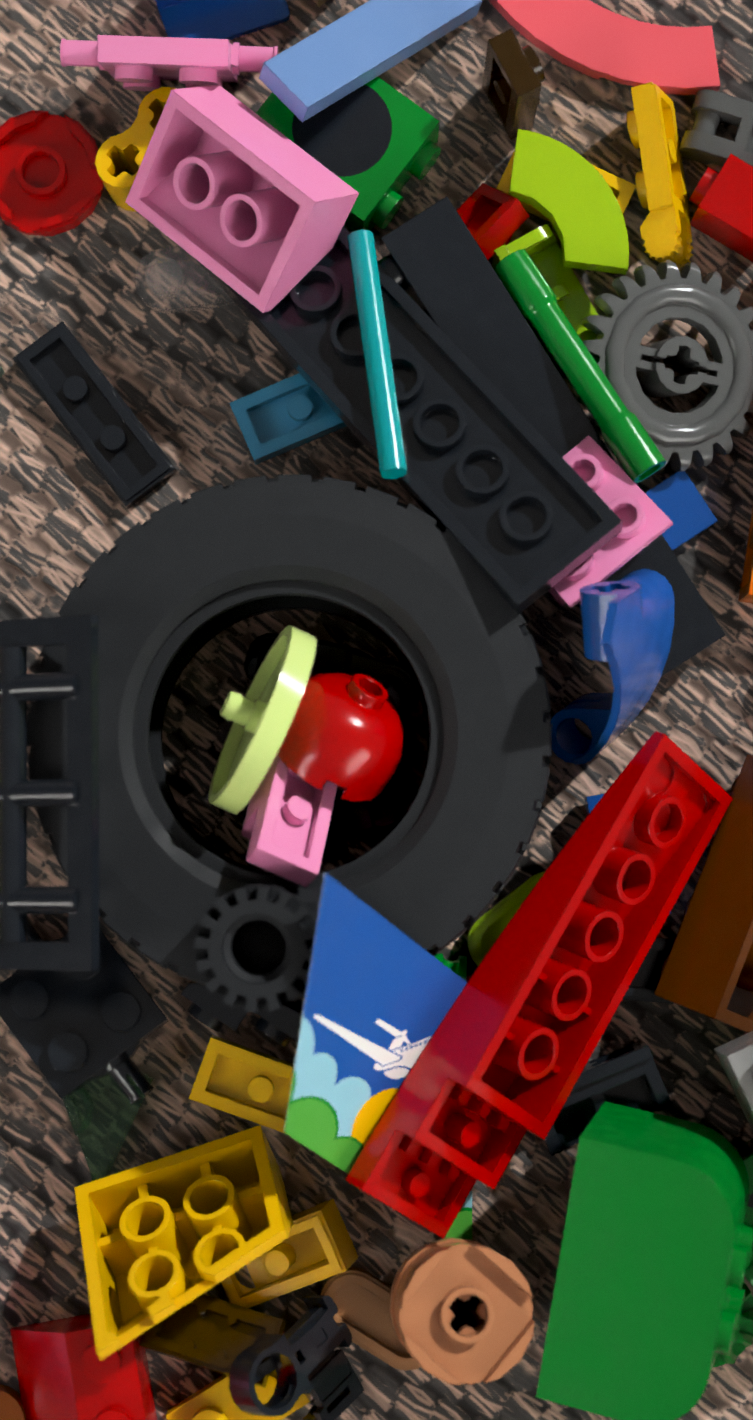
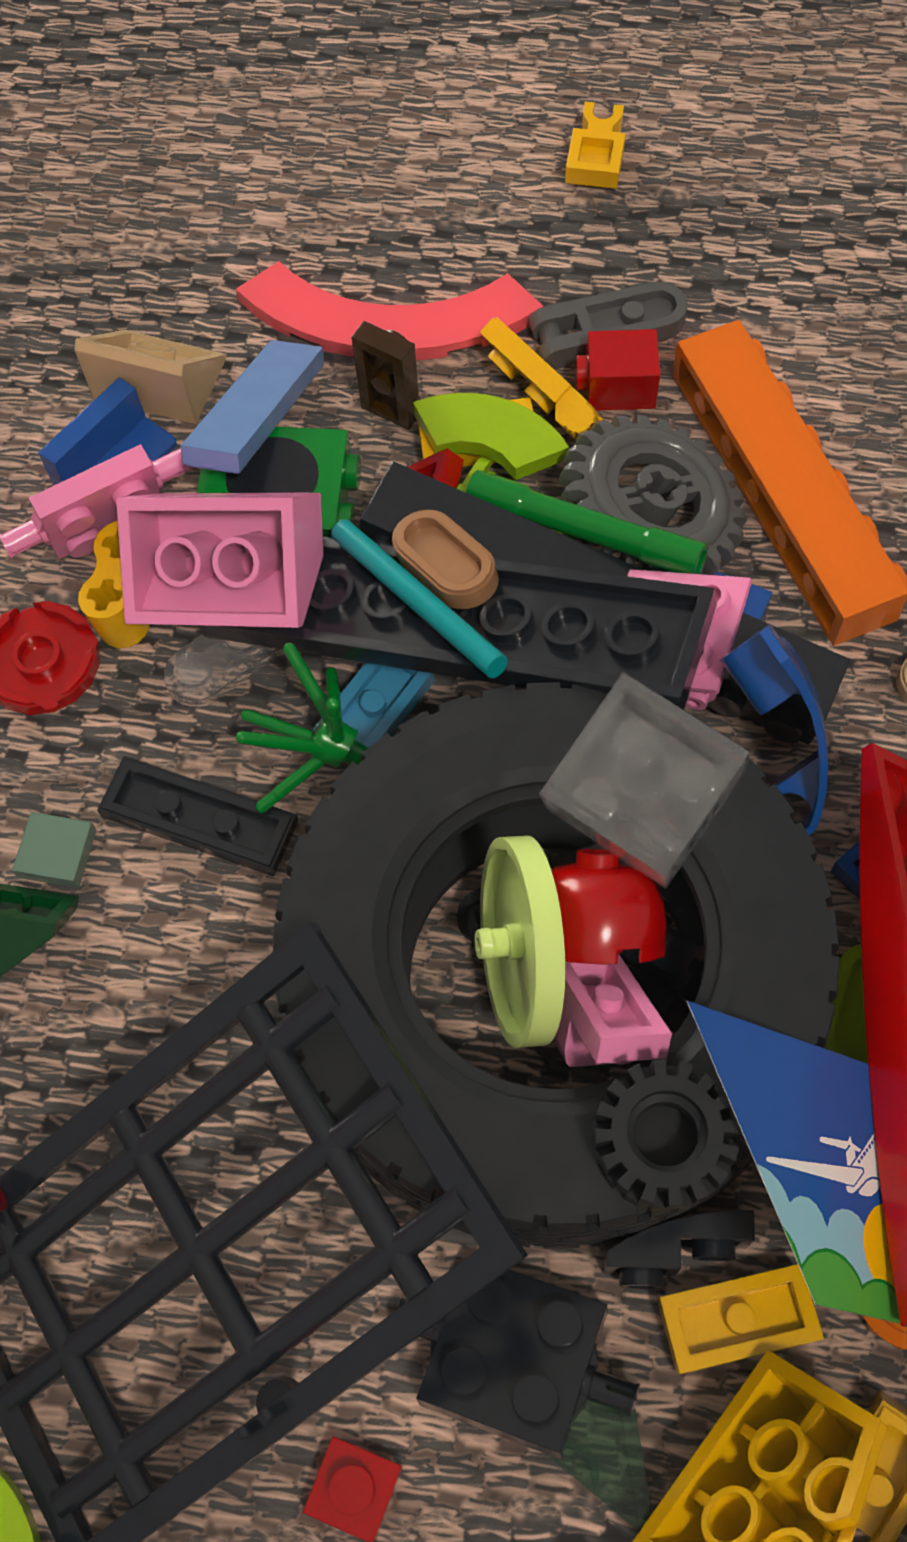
camera: 30 degrees left, 20 degrees down
(235, 427) = (328, 744): none -> green plant
(424, 332) = (445, 559): none -> medium nougat tile
(428, 665) = (645, 779): none -> clear brick

